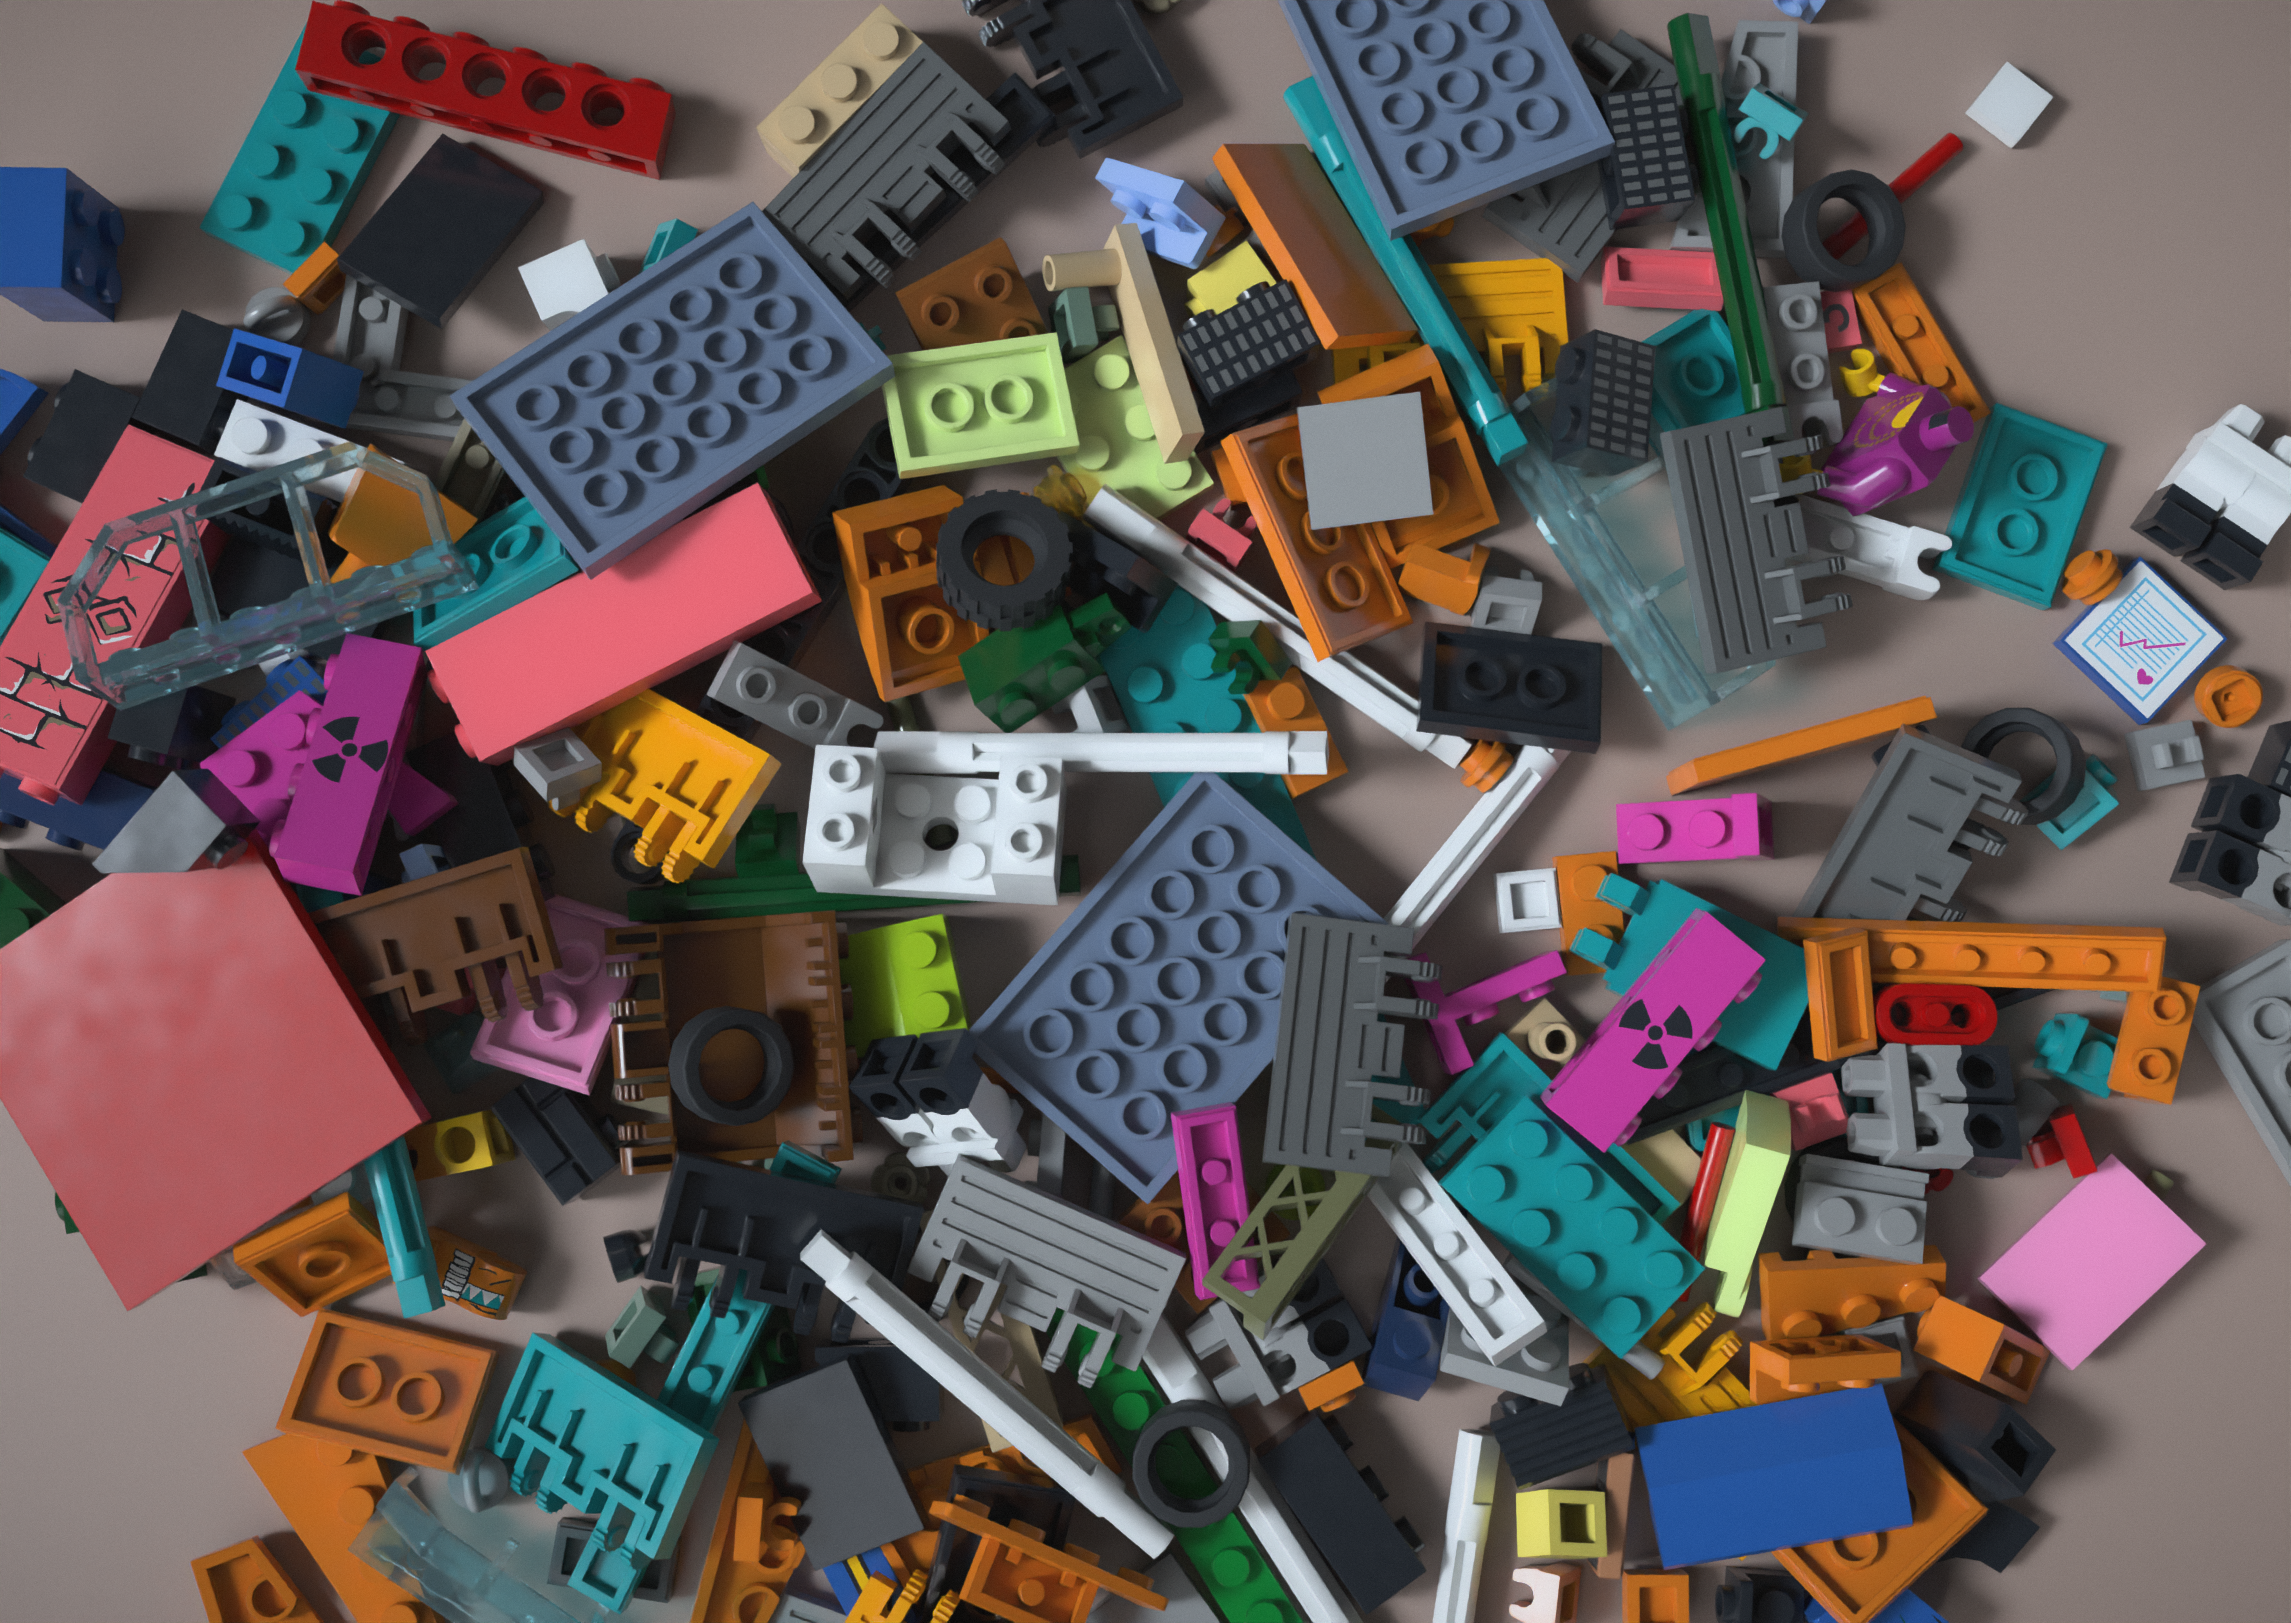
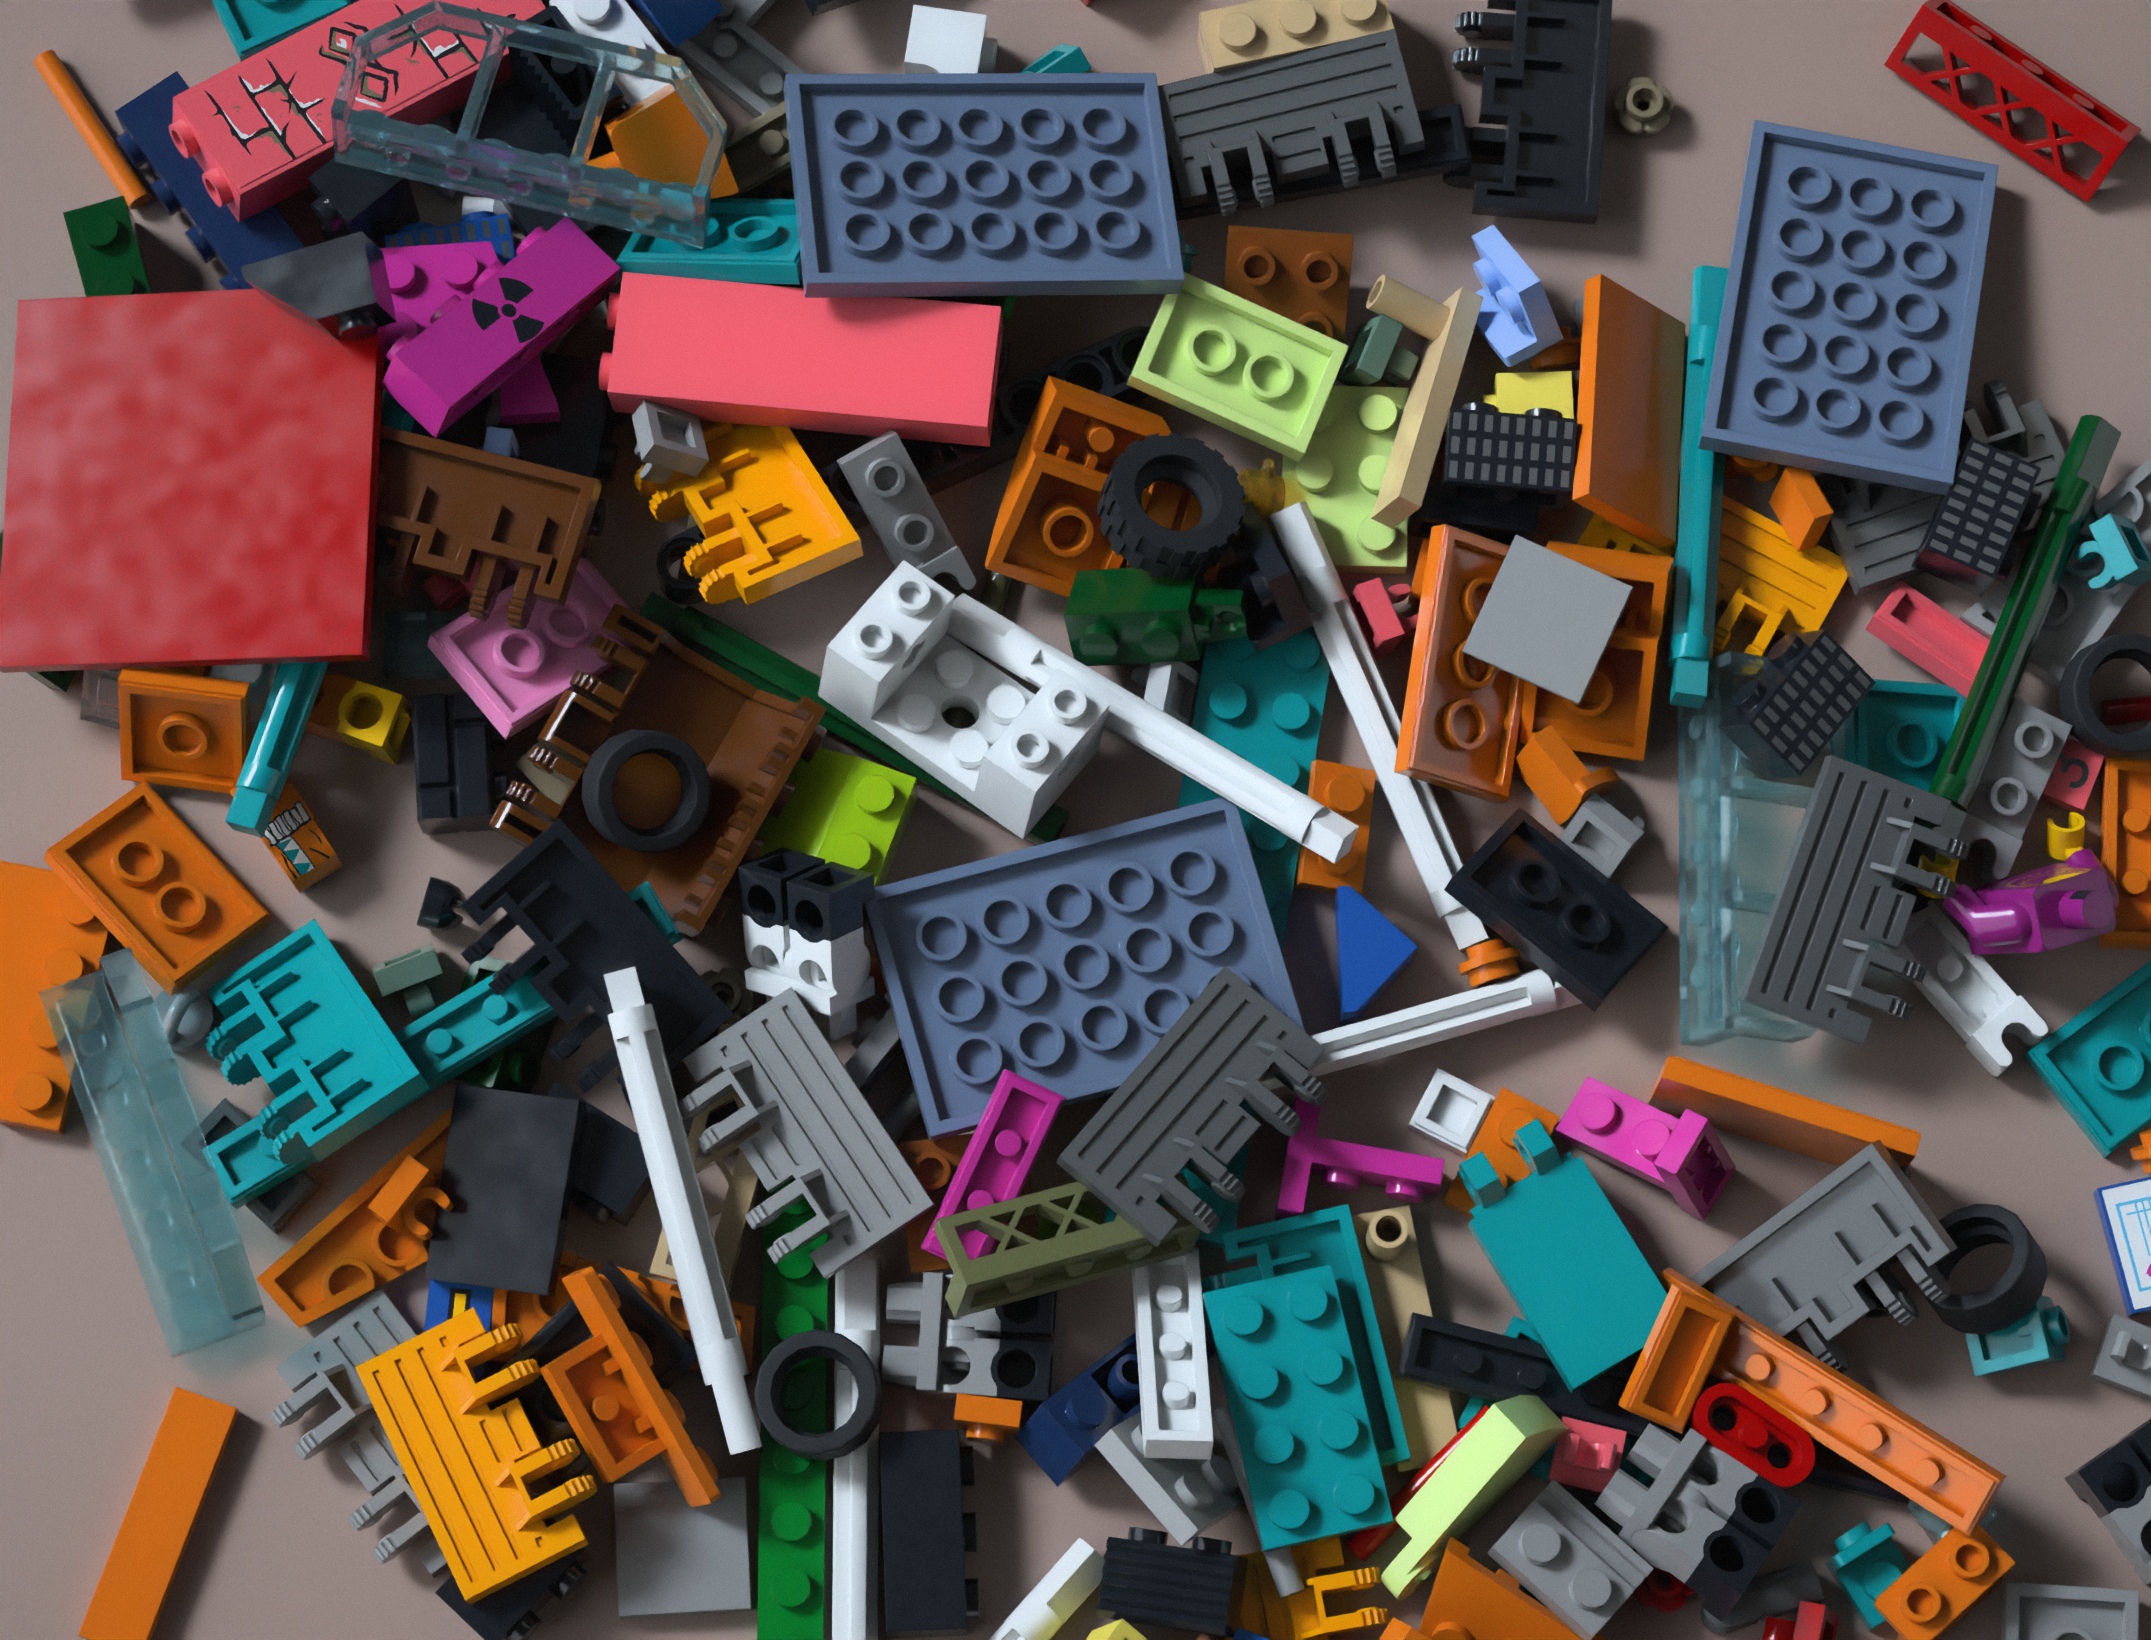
camera: 35 degrees right, 10 degrees down
(768, 843) = (802, 627): dark green tile -> none
(1249, 650) = (1340, 728): dark green tile -> none
(1385, 819) = (1368, 953): none -> blue slope
(1496, 237) = (1801, 507): none -> orange tile
(1653, 1029) = (1481, 1272): dark pink brick -> none

